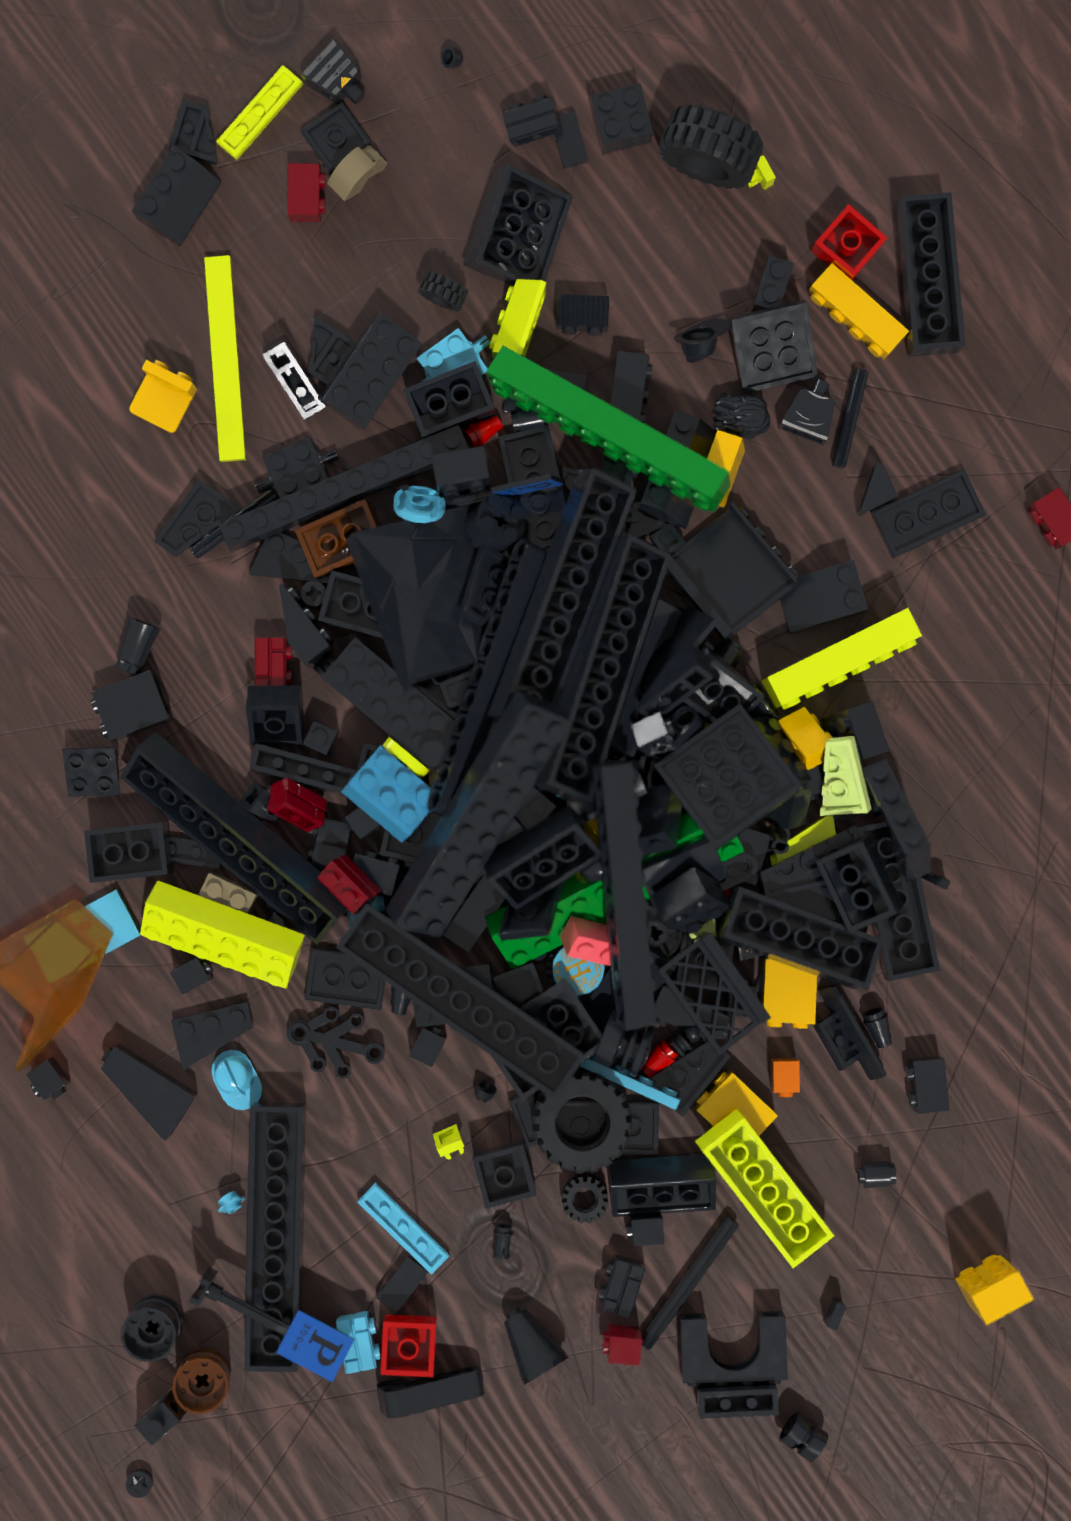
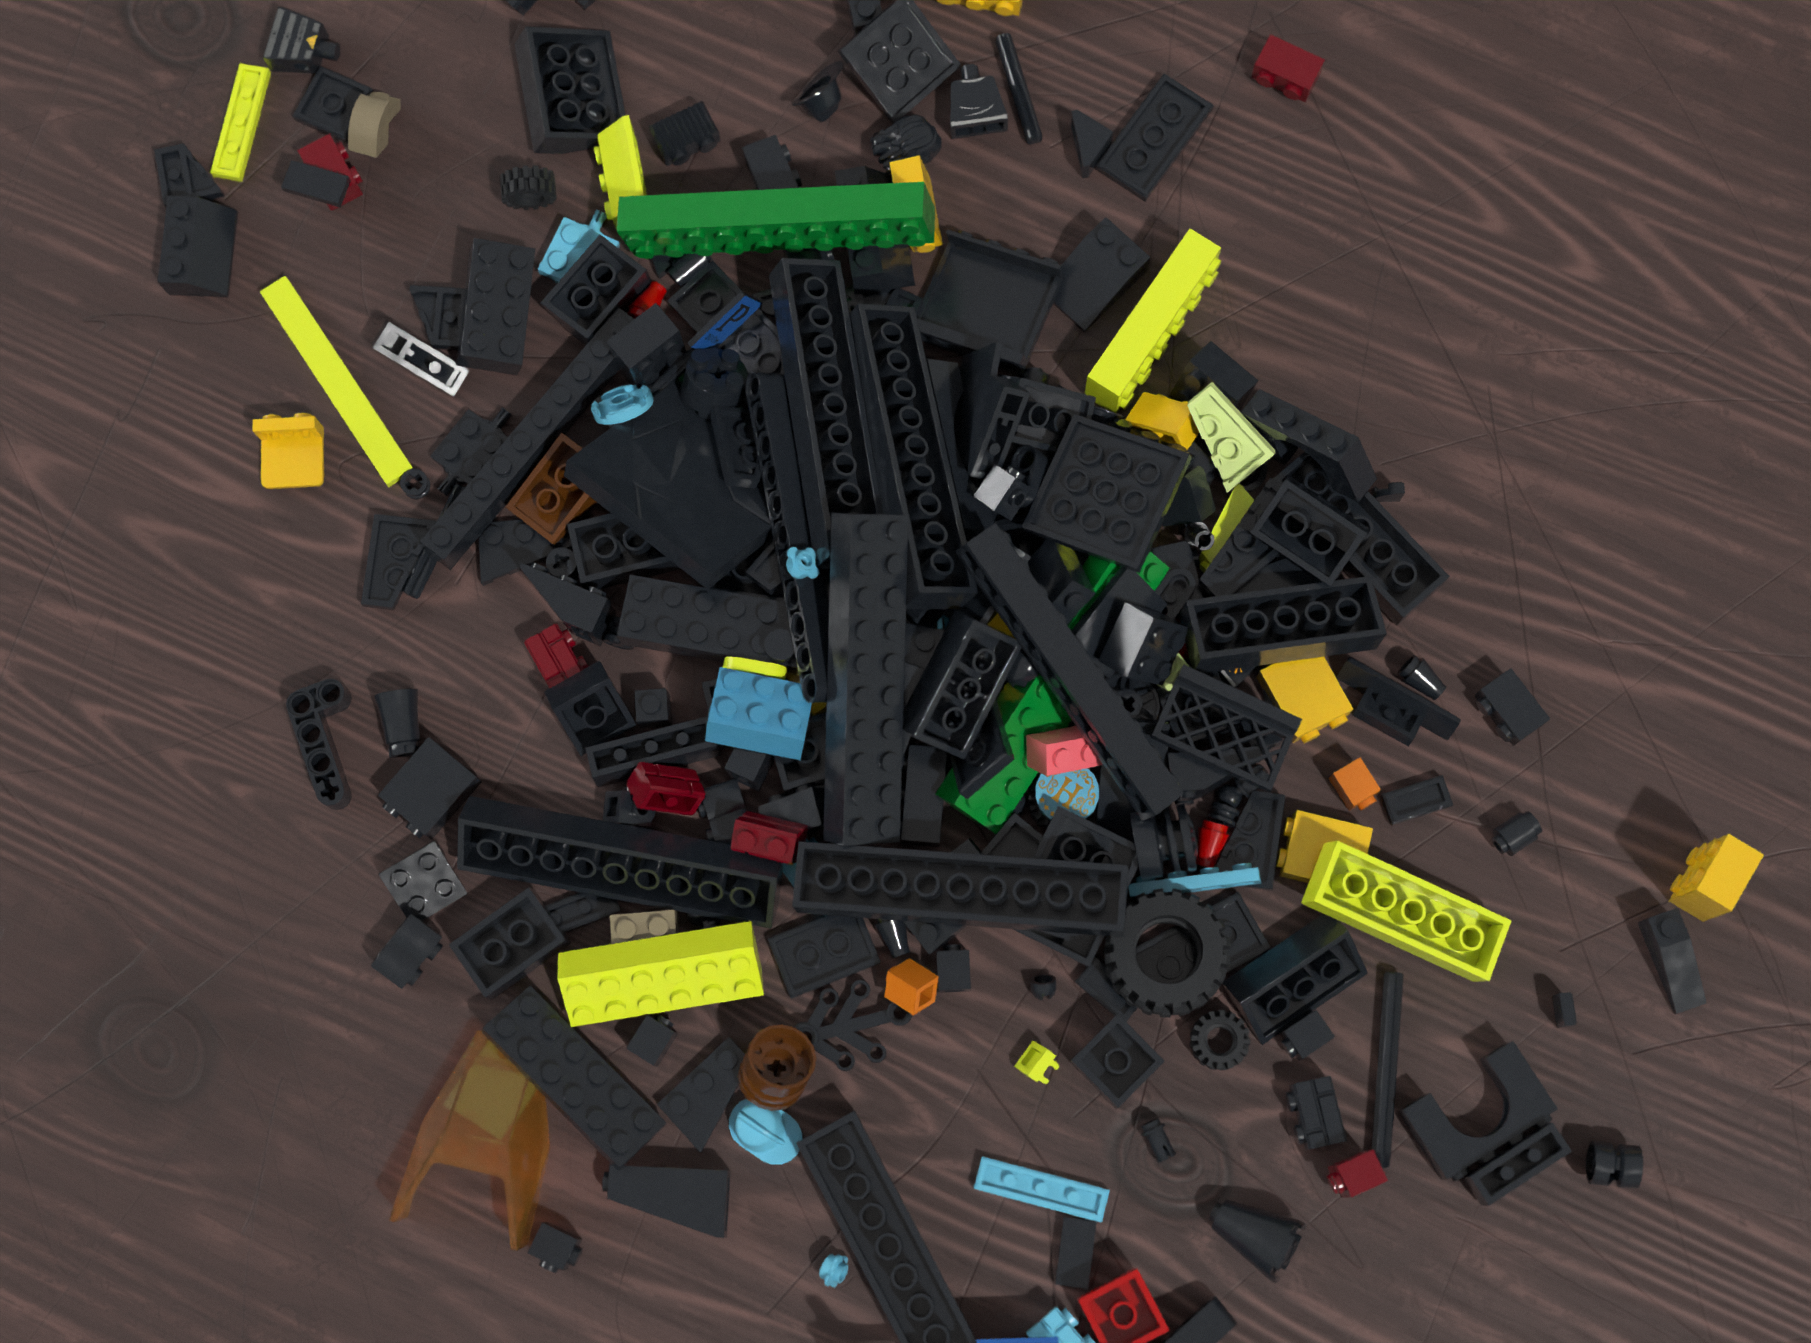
camera: 15 degrees left, 10 degrees down
(54, 814) = (407, 950): none -> black brick
(74, 632) = (324, 746): none -> black beam
(122, 971) = (574, 1077): none -> black plate
(245, 465) = (415, 474): none -> black bush
(278, 1039) = (776, 1067): none -> reddish brown wheel
(287, 199) = (315, 183): none -> black tile
(391, 1041) = (911, 986): none -> orange brick
(473, 704) = (797, 568): none -> medium azure plate
(822, 1110) = (1416, 800): none -> black tile
(932, 1321) = (1674, 959): none -> black slope

